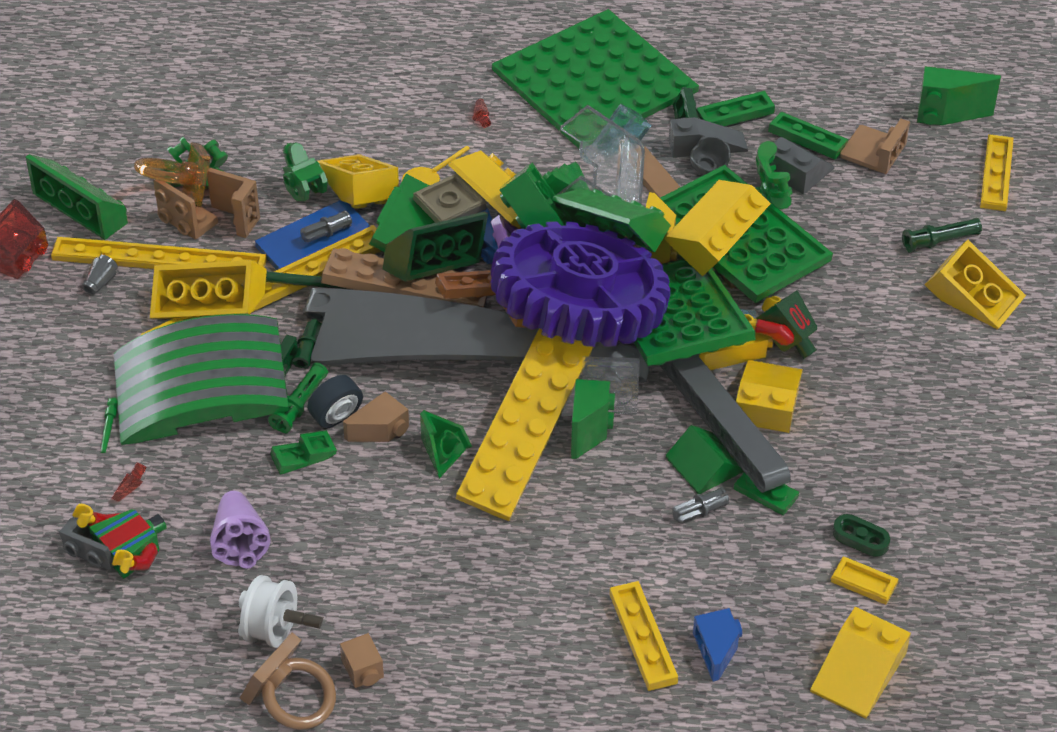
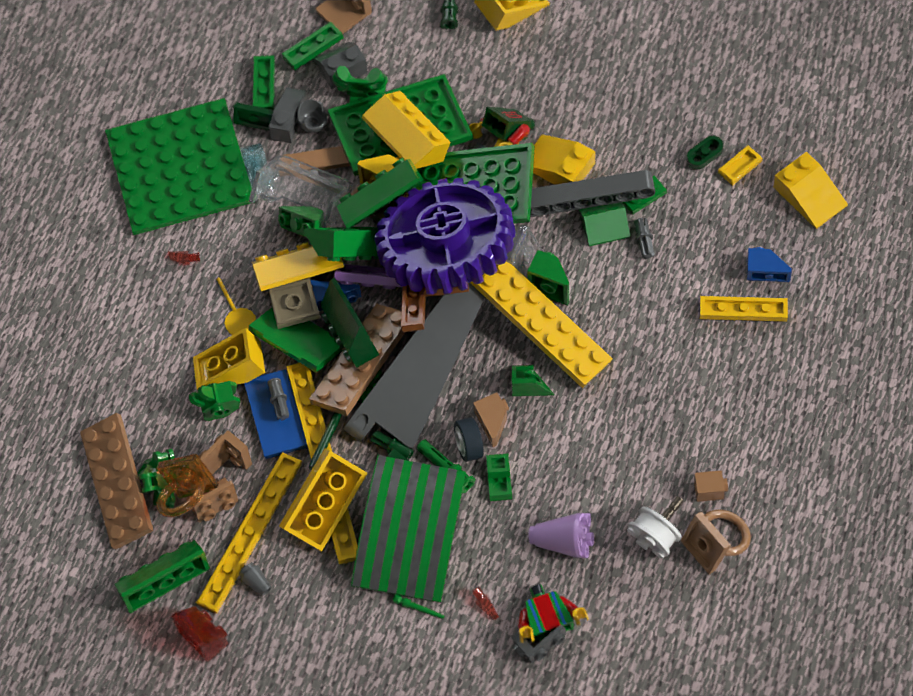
camera: 65 degrees left, 15 degrees up
(193, 126) = (116, 481): none -> medium nougat plate

